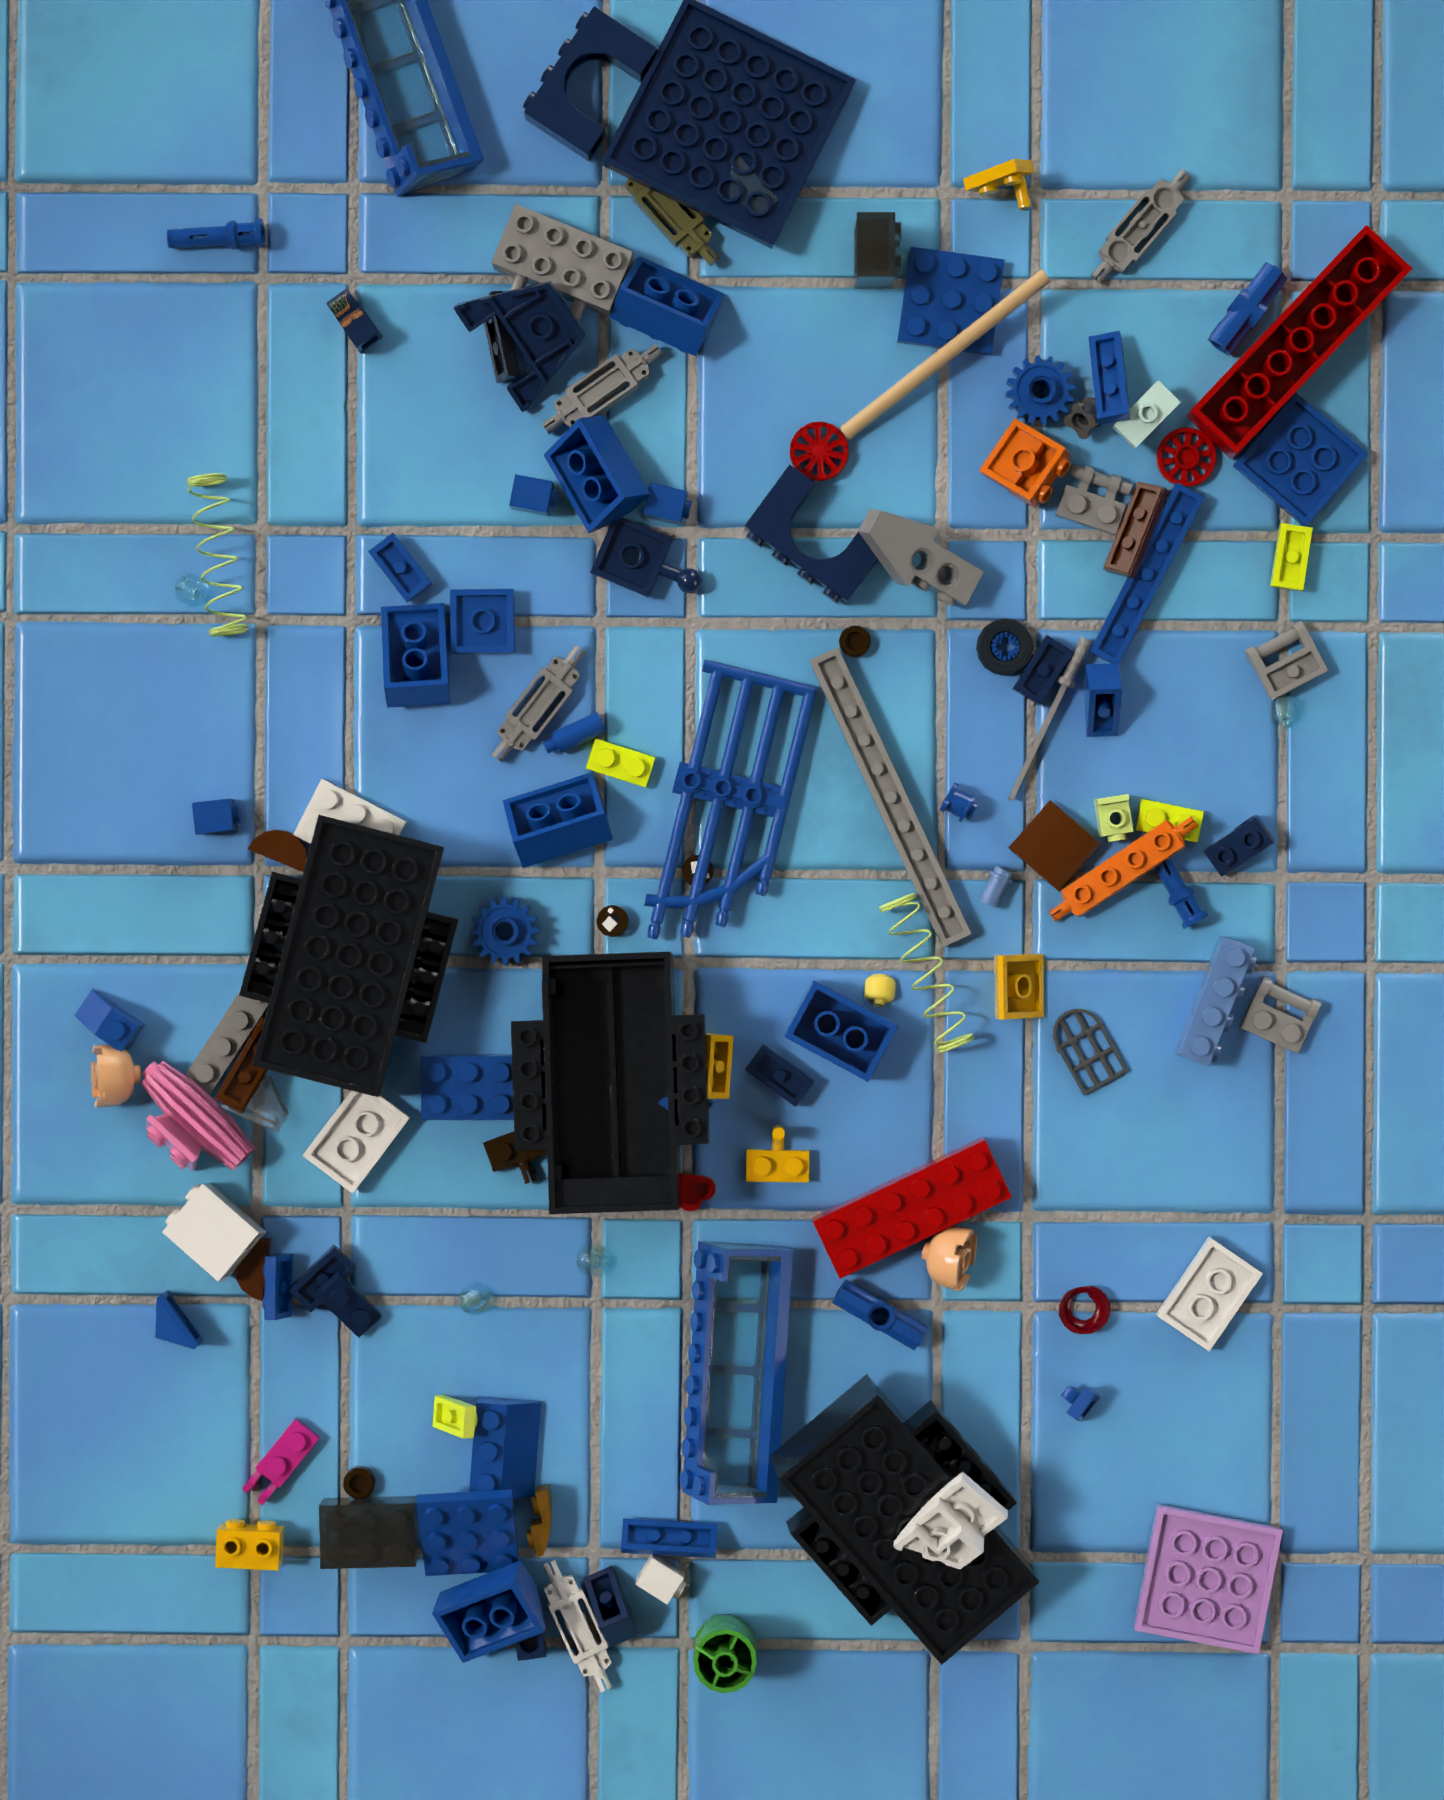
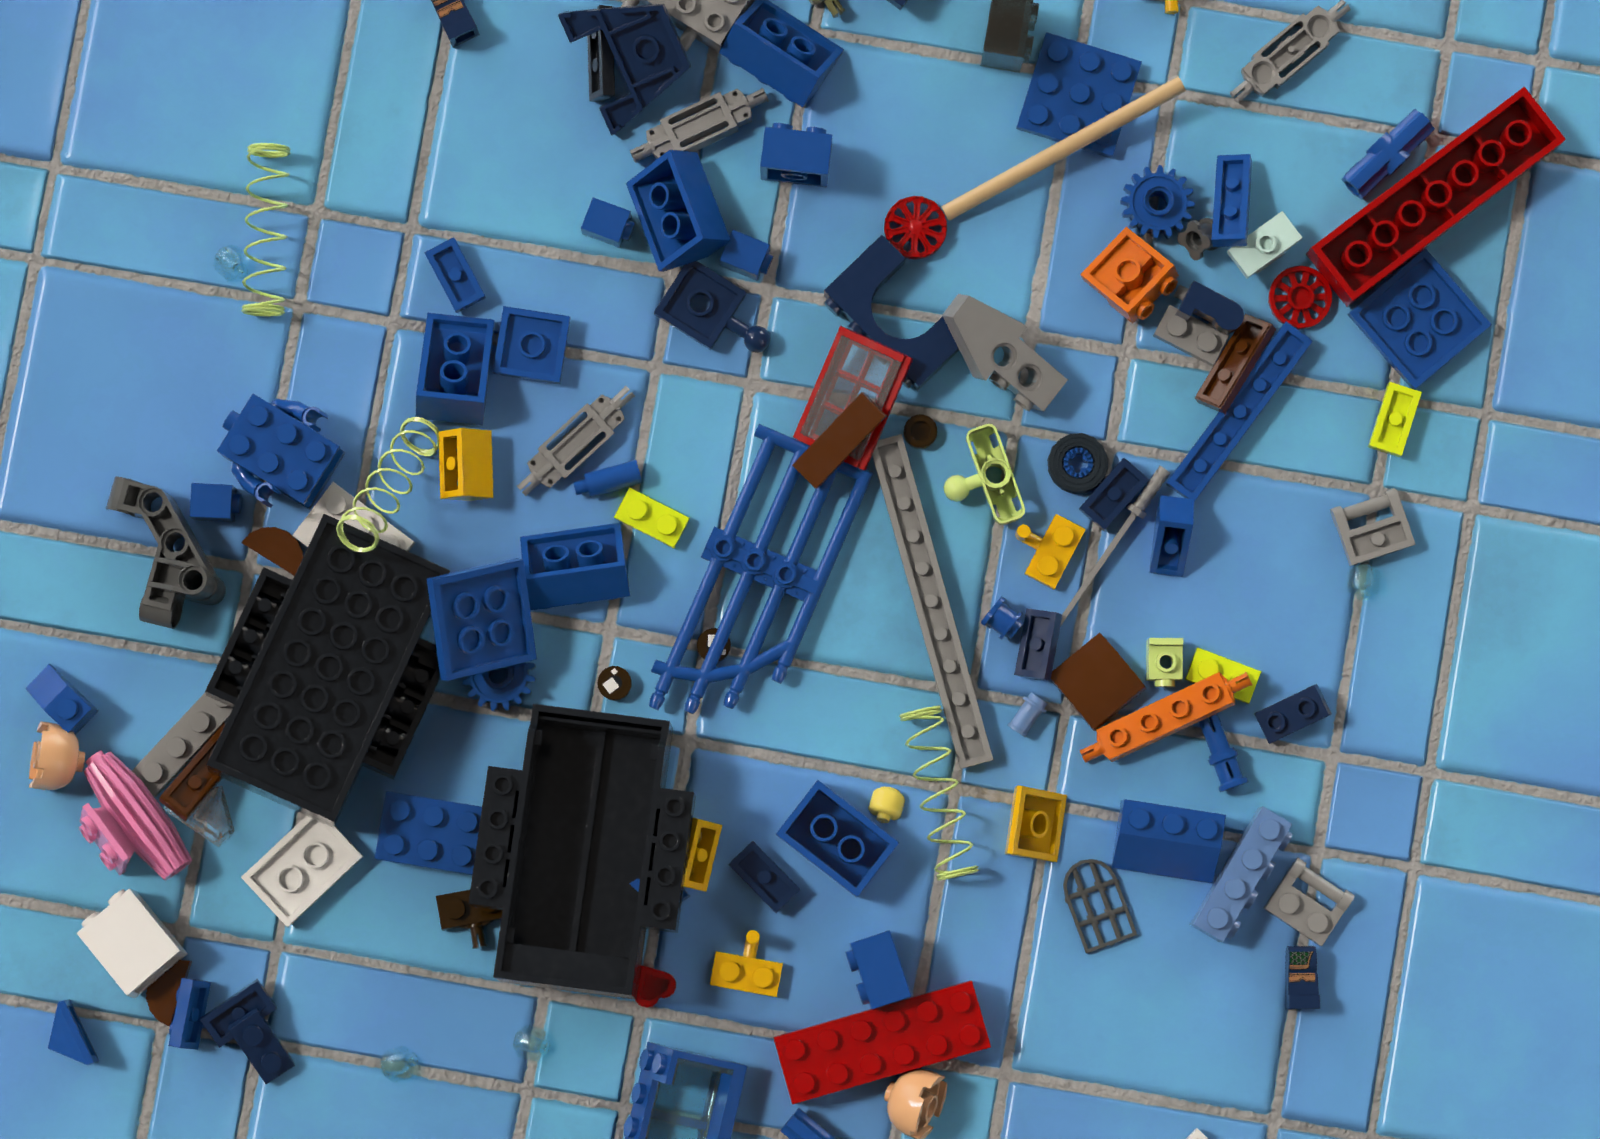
camera: 10 degrees right, 5 degrees down
(190, 889) = (173, 574): none -> dark grey connector
(267, 759) = (279, 450): none -> blue torso
(336, 829) = (424, 452): none -> yellowish green piece
(444, 743) = (468, 465): none -> yellow brick
(481, 886) = (481, 619): none -> blue plate
(697, 403) = (796, 155): none -> blue brick
(782, 663) = (839, 440): none -> reddish brown tile
(787, 621) = (853, 367): none -> clear piece
(899, 1143) = (878, 969): none -> blue brick
(938, 688) = (999, 494): none -> yellowish green piece
(994, 731) = (1052, 550): none -> yellow plate
(995, 821) = (1038, 644): none -> dark blue plate
(1105, 480) = (1212, 307): none -> dark blue leg
(1142, 981) = (1168, 841): none -> blue slope
(1284, 1086) = (1301, 978): none -> dark blue leg

